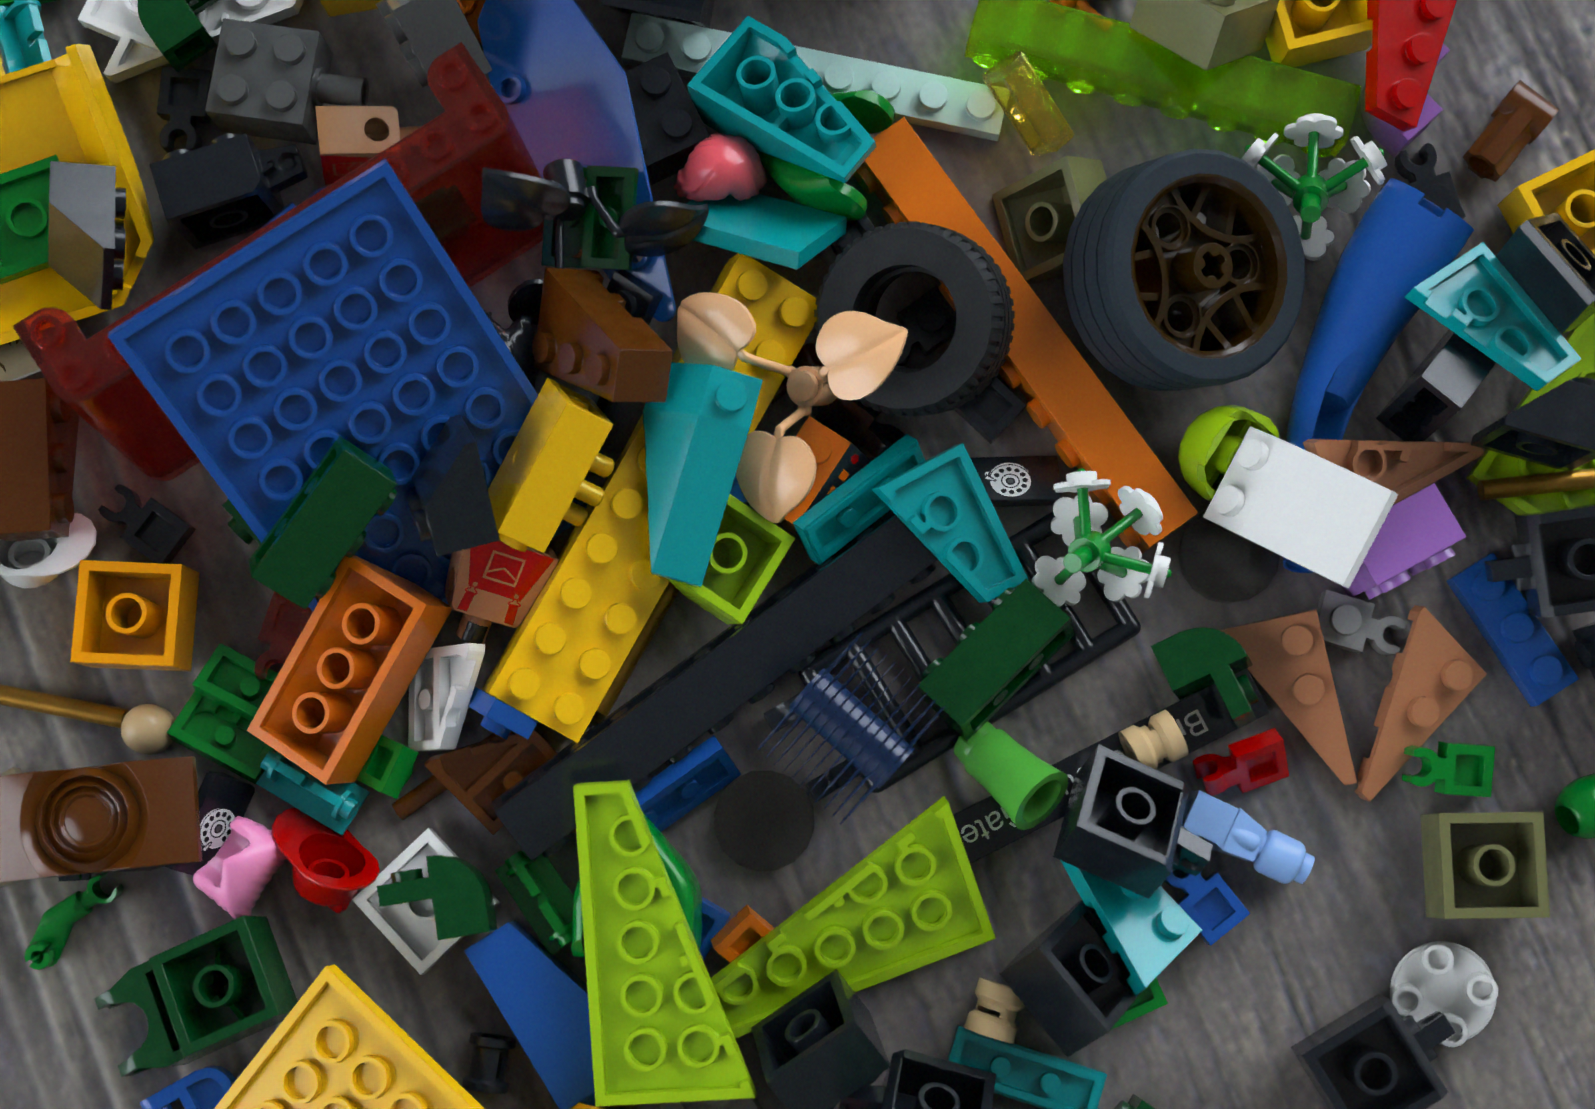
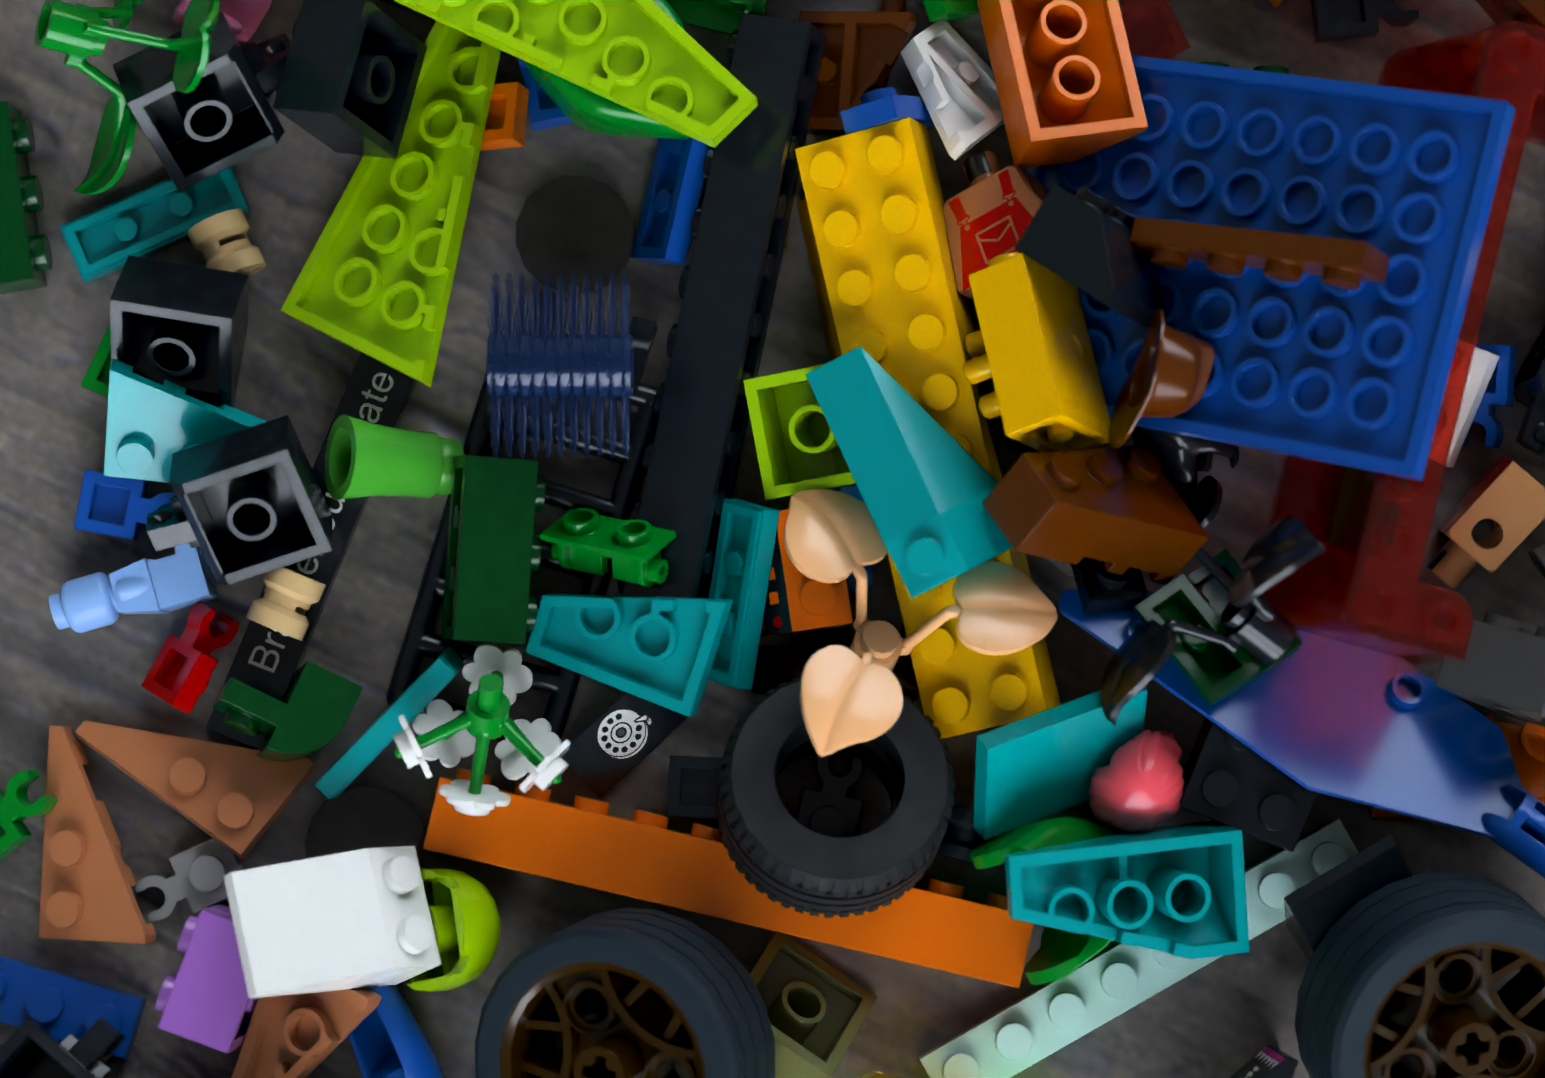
camera: 135 degrees right, 5 degrees up
(323, 524) = (1186, 127): dark green brick -> none
(339, 379) = (1280, 254): none -> reddish brown plate
(488, 380) = (1163, 380): none -> reddish brown piece
(924, 609) = (587, 540): none -> green hinge
(1158, 609) = (381, 732): none -> teal tile

